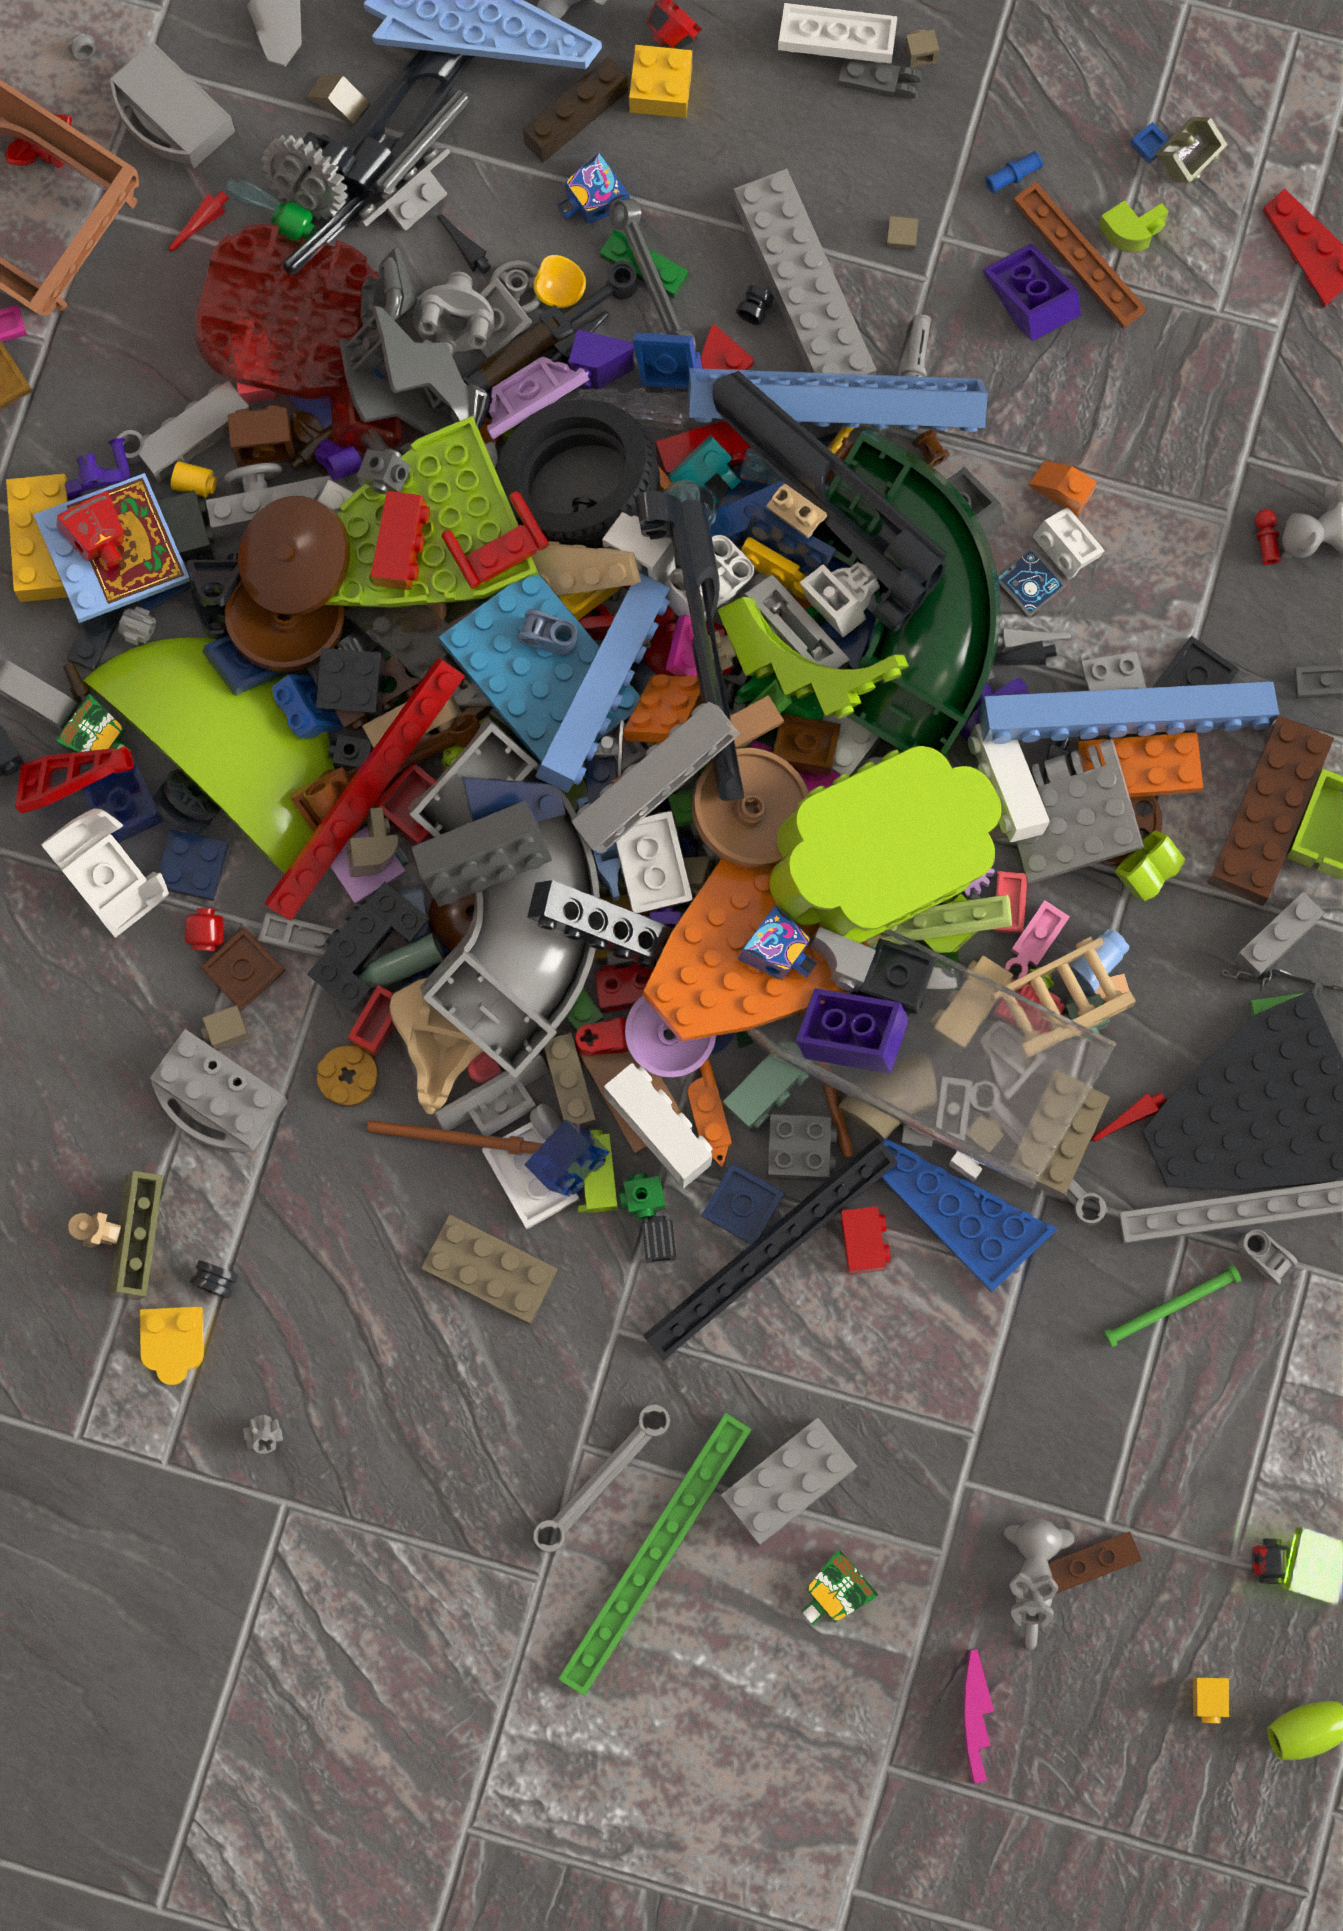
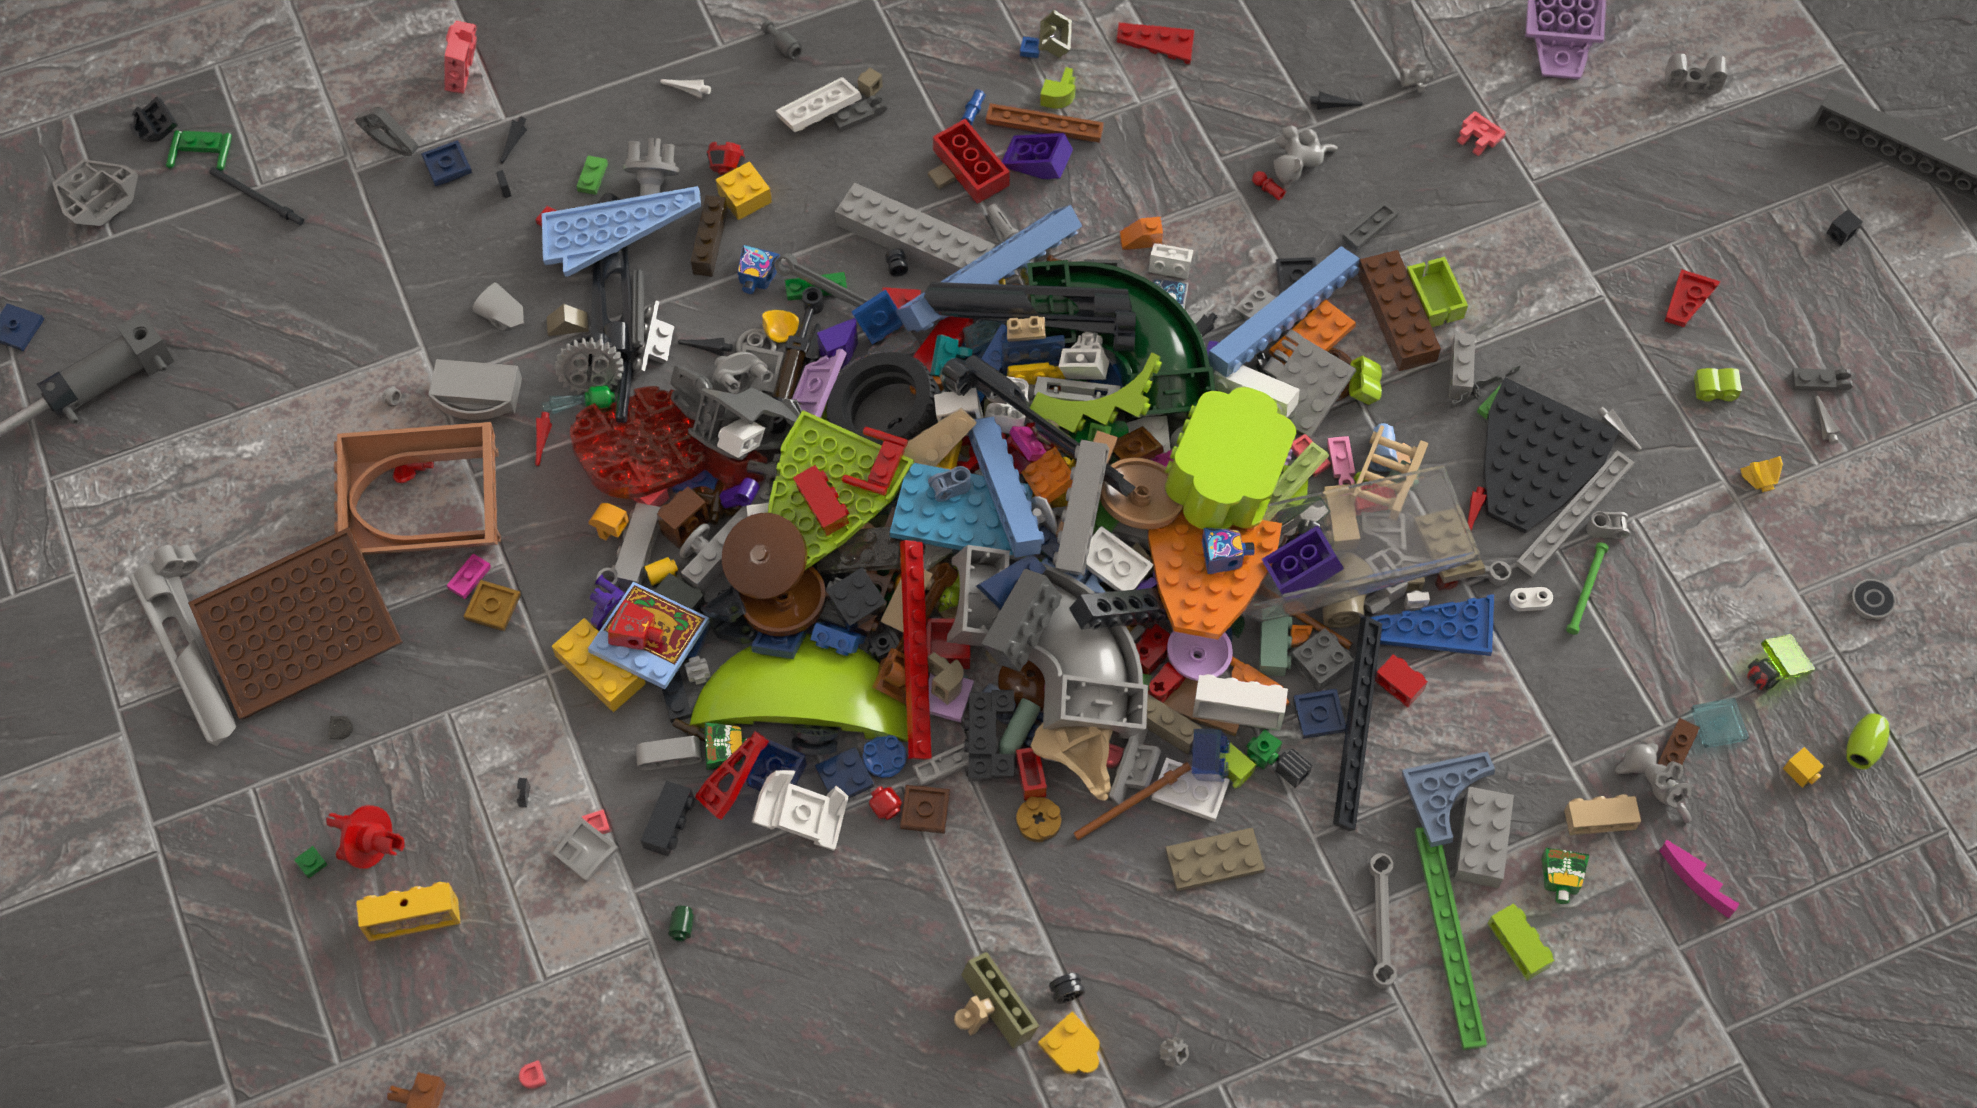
camera: 40 degrees left, 15 degrees down
(180, 380) = (609, 520): none -> light orange brick
(216, 1094) = (974, 885): light grey piece -> none
(224, 1028) = (946, 846): dark tan brick -> none
(248, 877) = (884, 756): none -> blue dish
(376, 400) = (740, 437): none -> white brick
(383, 471) = (780, 470): dark grey brick -> none
(545, 1120) = (1172, 753): light grey tile -> none
(723, 1622) = (1521, 941): none -> lime brick
(791, 1387) = (1437, 786): none -> sand blue plate
(805, 1099) = (1300, 634): none -> orange tile
(846, 958) = (1263, 530): light grey arch -> none
(898, 975) = (1297, 518): black tile -> none
(939, 1563) = (1602, 815): none -> tan brick
(947, 241) = (971, 161): none -> red brick
(1096, 1268) = (1531, 599): none -> white plate
(1171, 1573) = (1719, 722): none -> clear light blue plate

